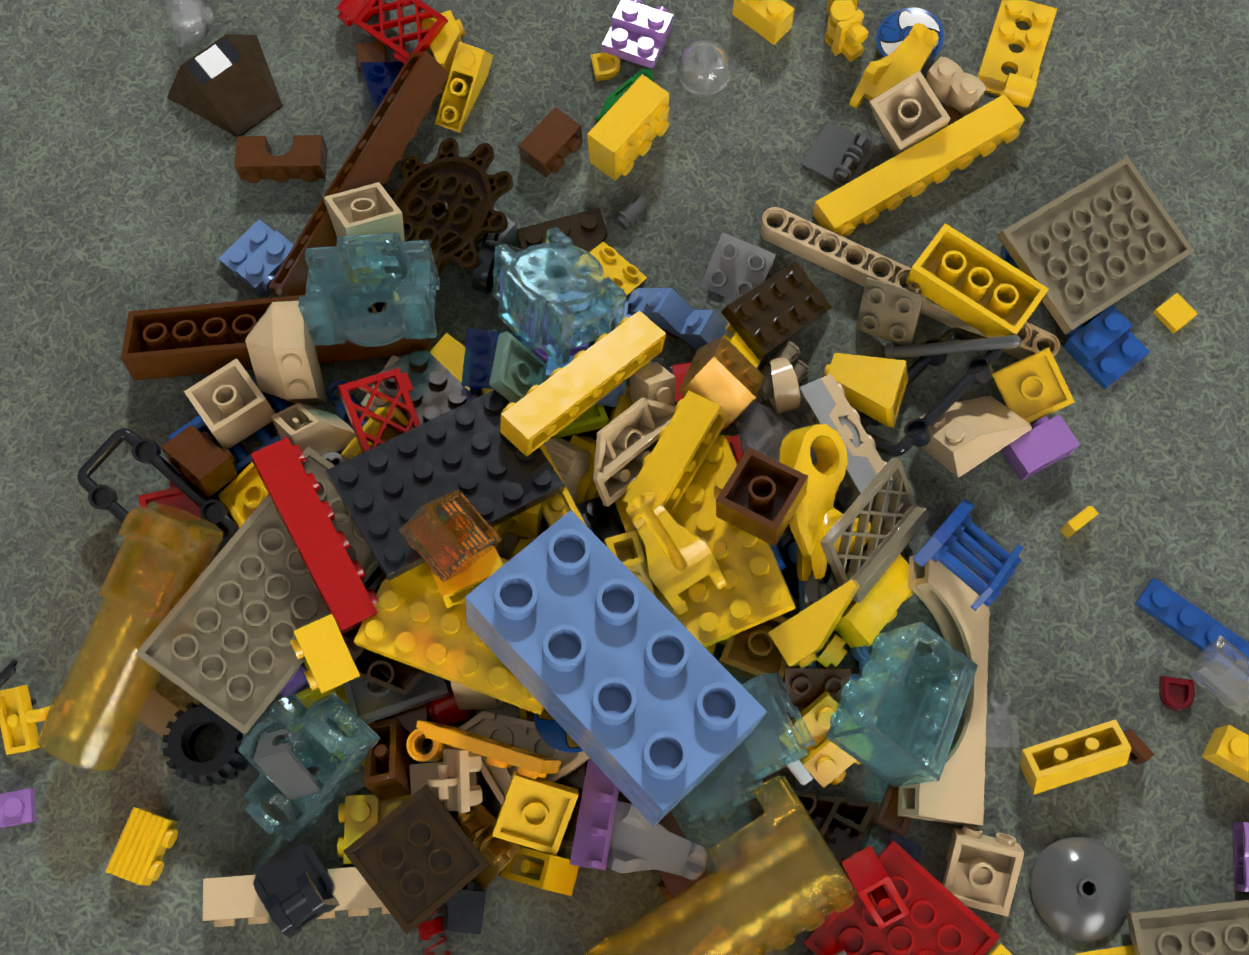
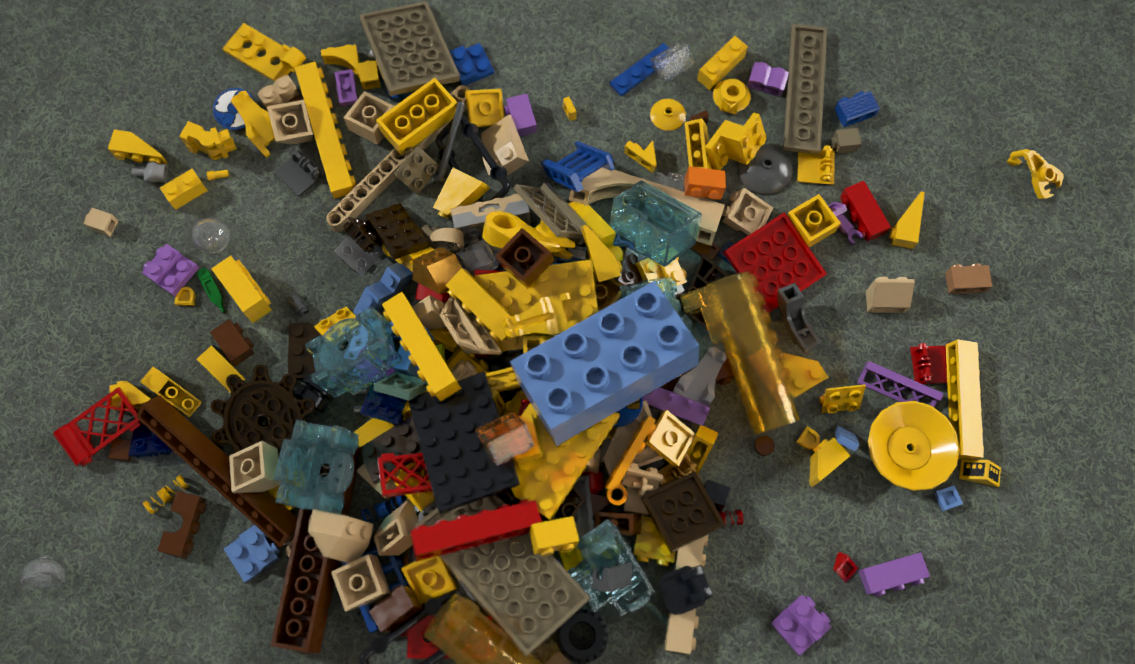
camera: 80 degrees left, 0 degrees up
(228, 84) = (110, 554): dark brown wedge -> none
(318, 121) = (164, 495): none -> yellow piece
(506, 132) = (218, 365): none -> yellow slope
(762, 261) = (363, 233): none -> dark brown hinge
(799, 44) = (213, 175): none -> yellow piece
(875, 887) = (751, 262): red slope -> none
(961, 210) = (363, 116): none -> tan brick
(999, 178) = (346, 87): none -> medium lavender plate
(1010, 780) = (704, 183): none -> orange brick
(1030, 668) = (643, 157): none -> yellow slope
(1052, 168) = (349, 57): none -> yellow arch
(1108, 821) = (736, 142): none -> yellow bracket
(1116, 700) = (668, 121): none -> yellow dish
(1175, 313) = (460, 23): yellow tile -> none
(1176, 692) = (674, 91): dark red tile -> none
(1203, 797) = (731, 96): none -> yellow piece

